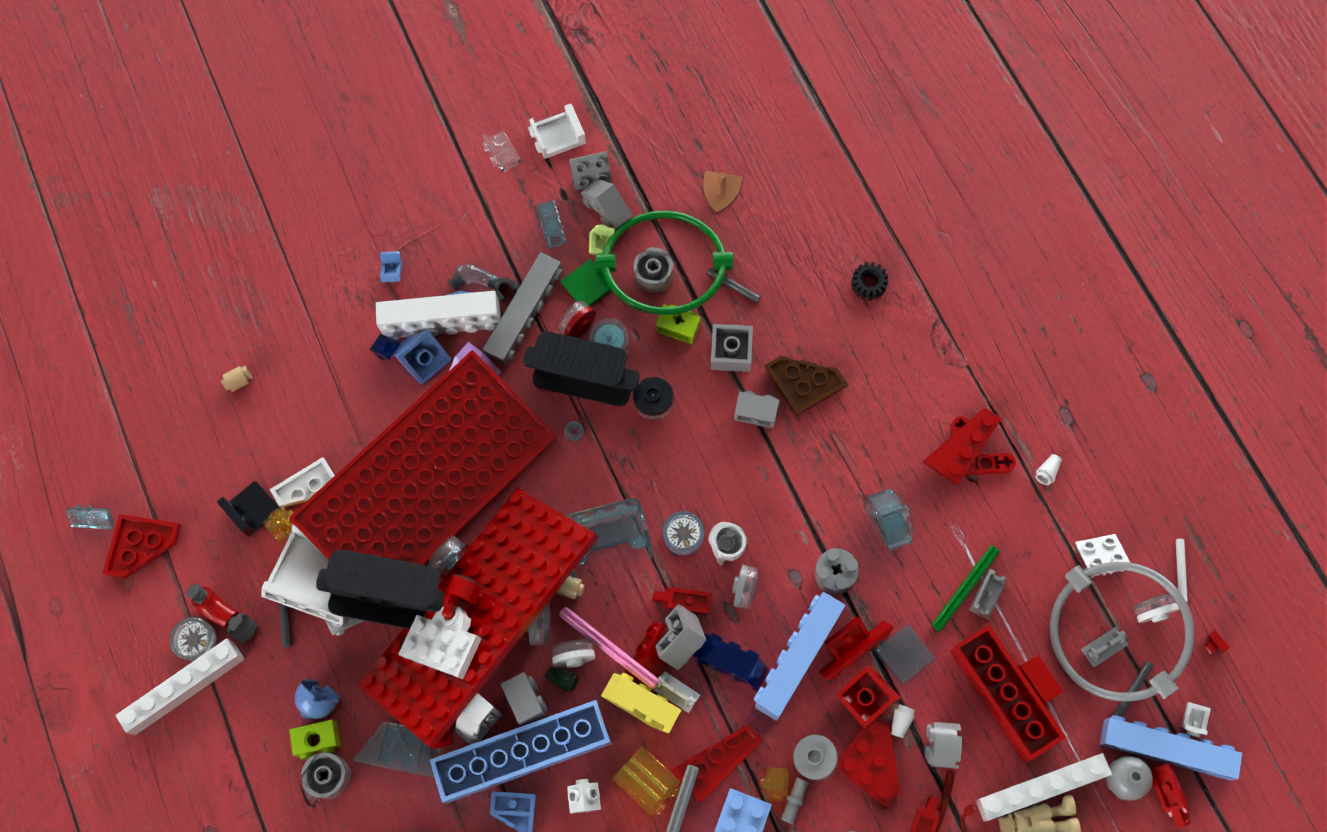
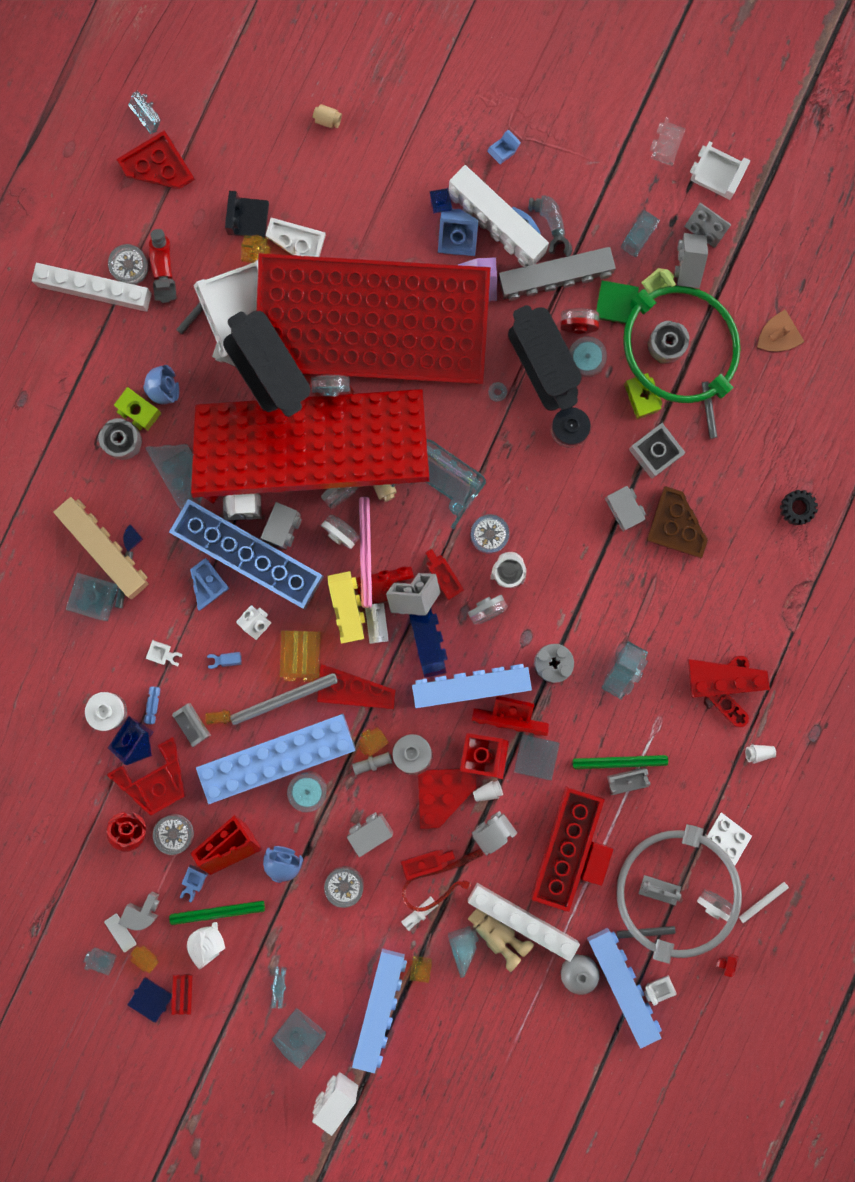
camera: 45 degrees right, 15 degrees up
(444, 639) = (271, 435): white plate -> none
(563, 679) = (319, 541): clear green cone -> none
(1171, 794) = (592, 1010): red hinge -> none

